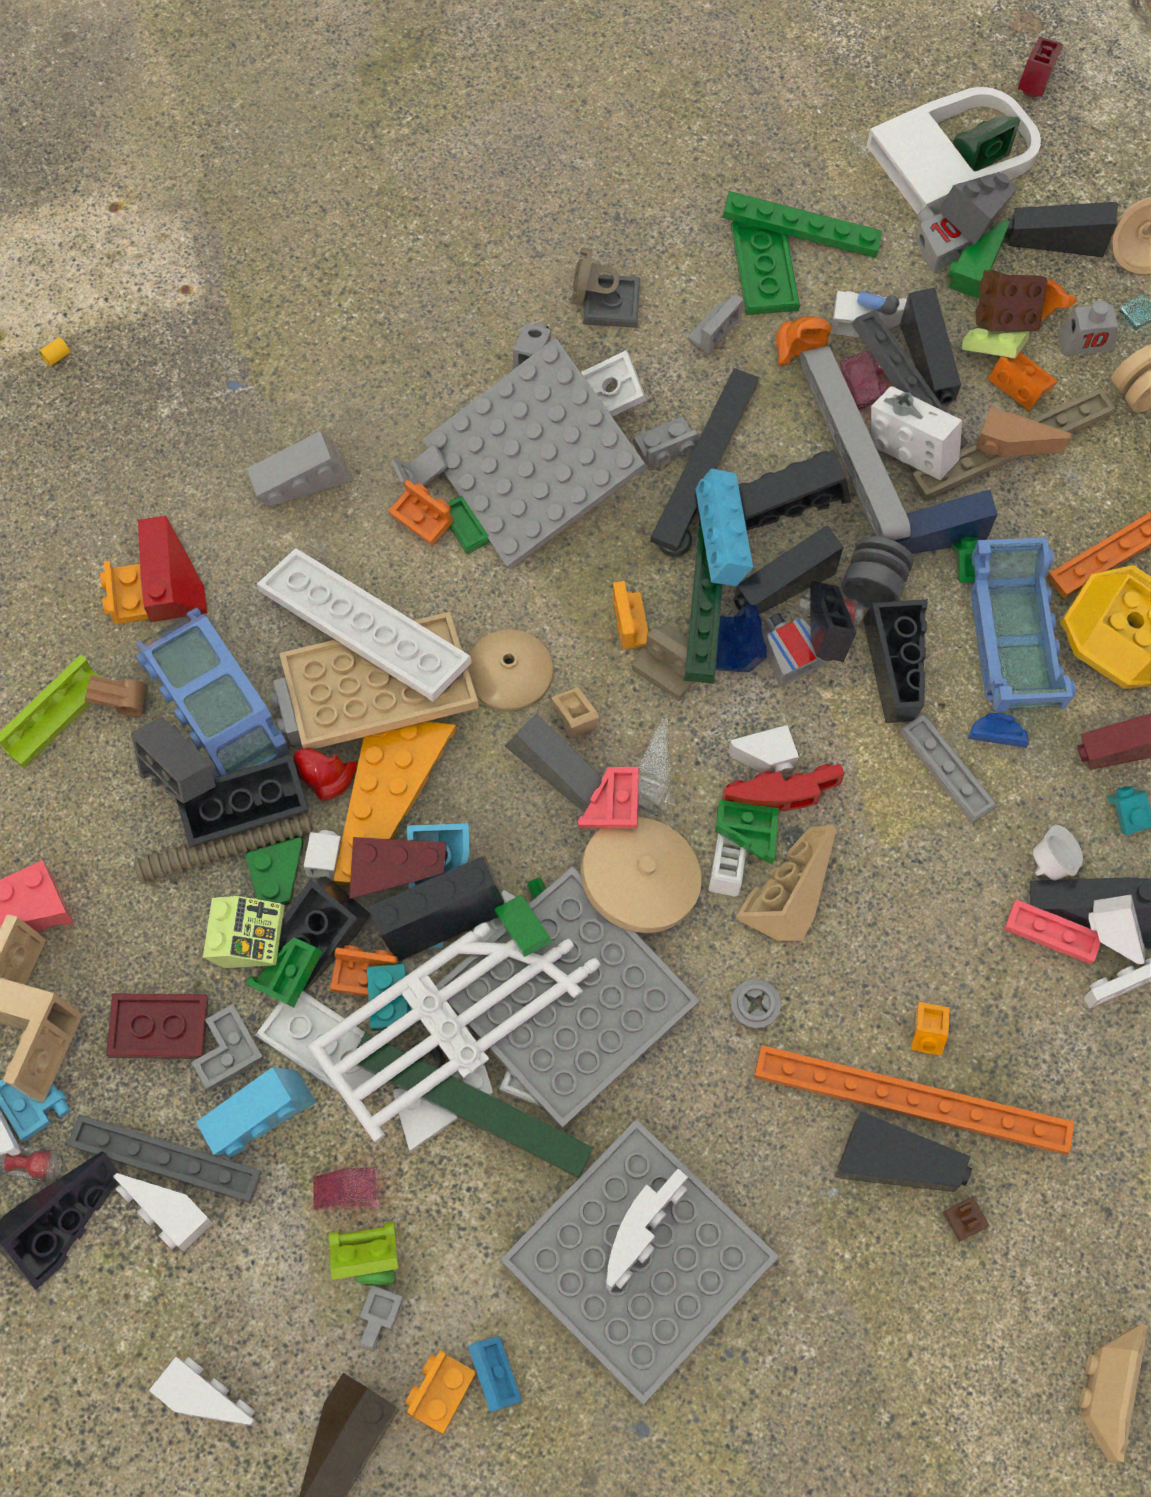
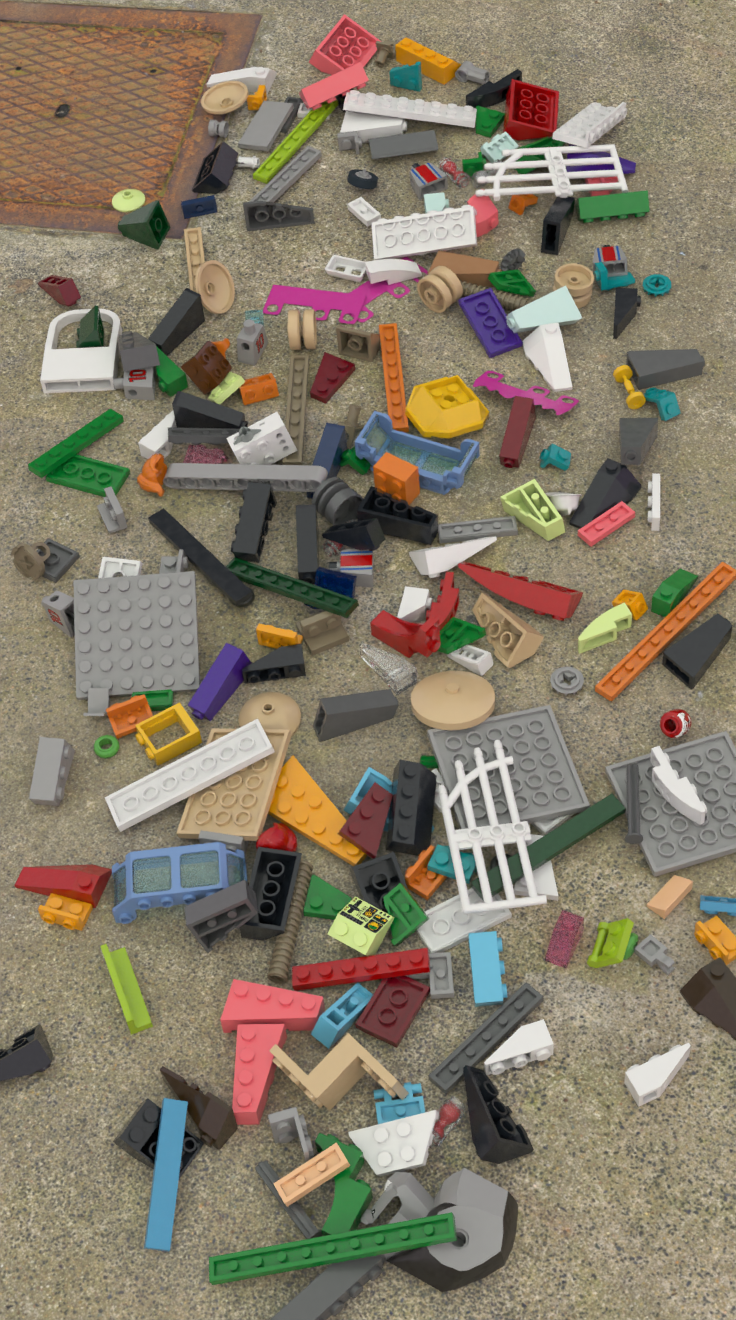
camera: 55 degrees left, 15 degrees down
(89, 879) = (270, 1005): none -> coral wedge
(121, 972) = (341, 1015): none -> medium azure slope
(125, 696) = (143, 938): medium nougat piece -> none
(189, 963) = (360, 969): none -> red plate
(322, 854) = (333, 865): white brick -> none
(371, 520) = (106, 753): none -> bright green piece
(443, 582) = (161, 721): none -> yellow window
(480, 1295) = (670, 896): none -> light nougat slope
(522, 585) = (219, 683): none -> dark purple slope
(522, 925) = (453, 765): green tile -> none
(576, 712) = (323, 688): tan slope -> none
(591, 1182) = (633, 805): none -> dark grey axle
(593, 640) = (279, 664): none -> black slope
(615, 801) = (400, 687): coral wing -> none
(710, 764) = (407, 636): none -> red arch
(723, 527) = (258, 558): medium azure brick -> none
(753, 1180) = (675, 723): none -> red head
(864, 745) = (441, 559): none -> white wedge
(867, 1012) = (605, 628): none -> yellowish green slope
(874, 901) = (536, 595): none -> red wedge
(884, 305) = (167, 421): arm -> none
(959, 624) = (396, 478): none -> orange brick
(987, 1077) = (672, 592): none -> green slope
(999, 729) = (469, 495): blue tile -> none
(1014, 435) = (295, 402): medium nougat slope -> none
(1017, 825) = (534, 510): none -> yellowish green wedge
(1024, 521) = (351, 423): none -> dark tan bracket
(1100, 455) = (330, 377): none -> dark red wing
(1118, 926) = (622, 487): white slope -> none

